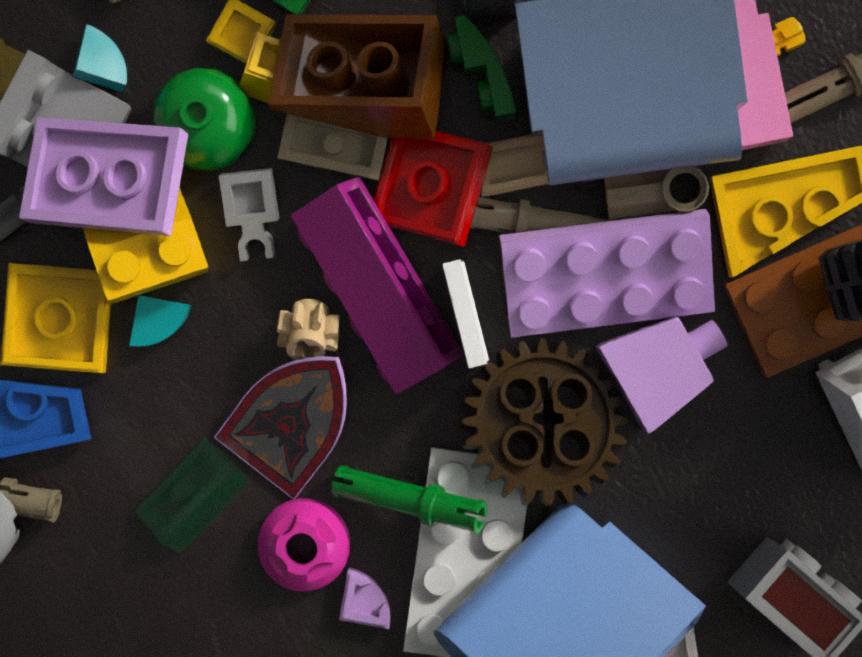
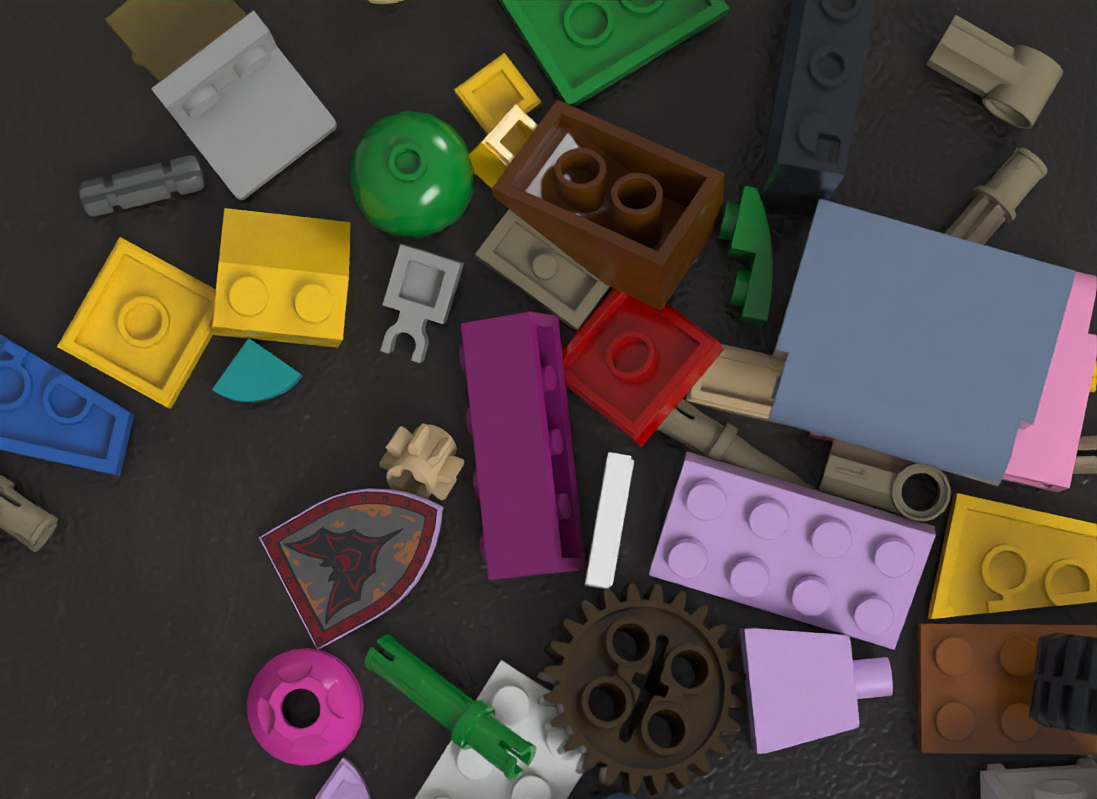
camera: 30 degrees right, 5 degrees down
(100, 60) = (326, 59): tile -> none
(104, 176) = (273, 187): lavender plate -> none
(191, 496) = (202, 593): clear green slope -> none

